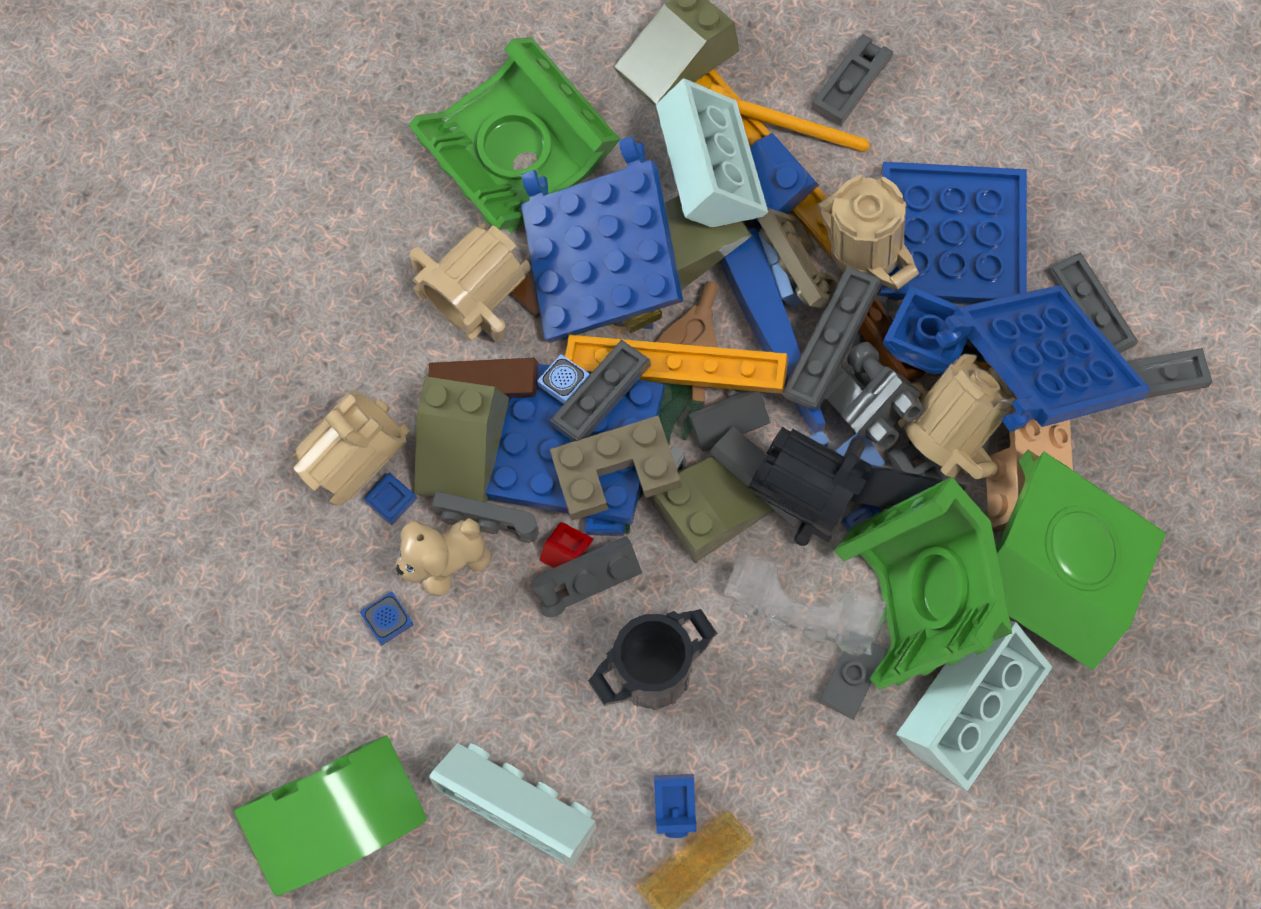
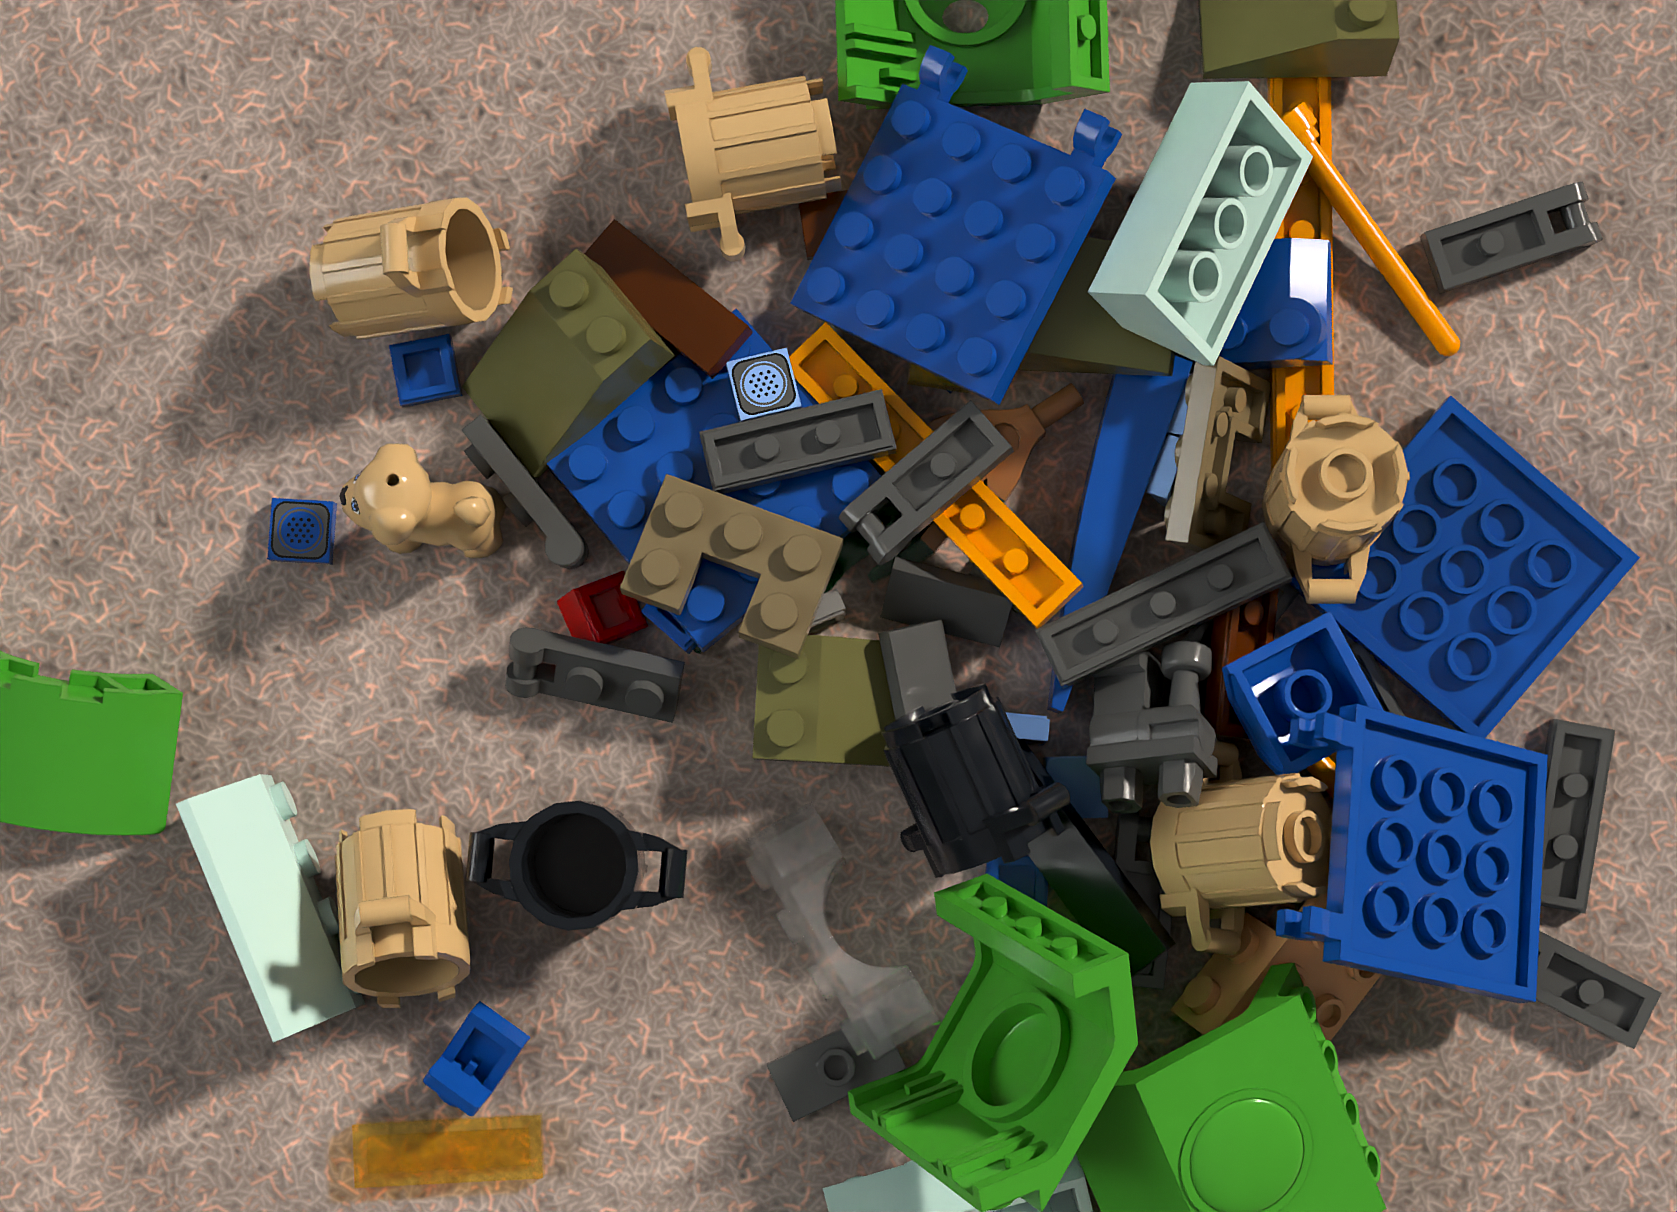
camera: 35 degrees right, 15 degrees up
(582, 750) = (402, 908): none -> tan container
(677, 362) = (927, 481): none -> dark grey plate

